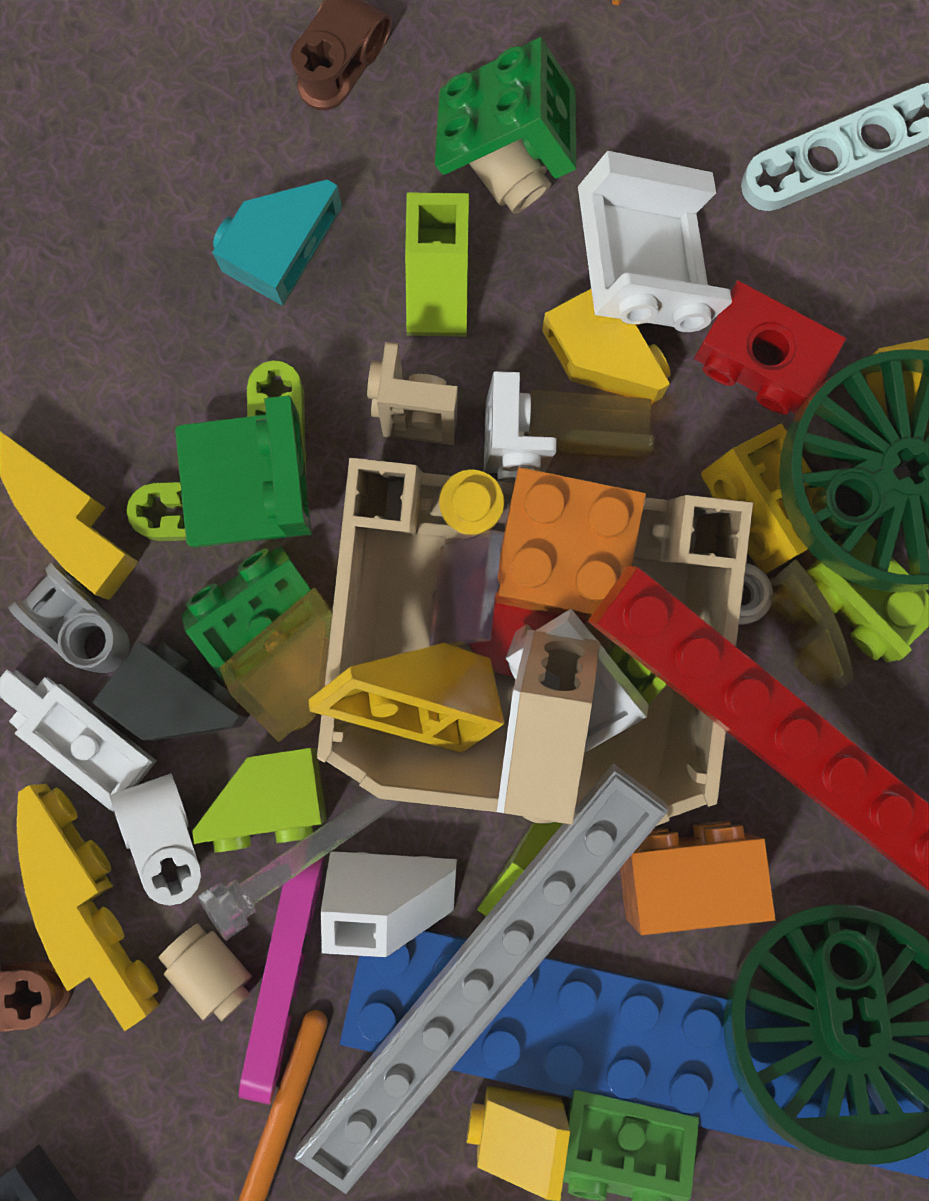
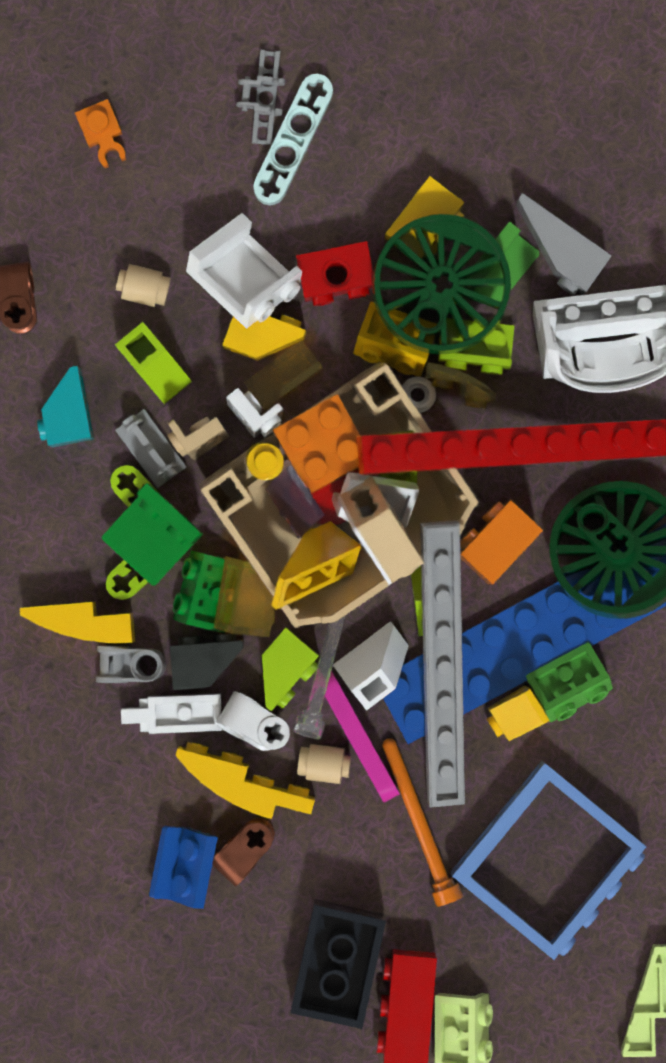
camera: 40 degrees left, 5 degrees up
(341, 372) = (150, 448): none -> light grey hinge
(505, 101) = (121, 261): green bracket -> none
(841, 78) = (259, 108): none -> light grey piece

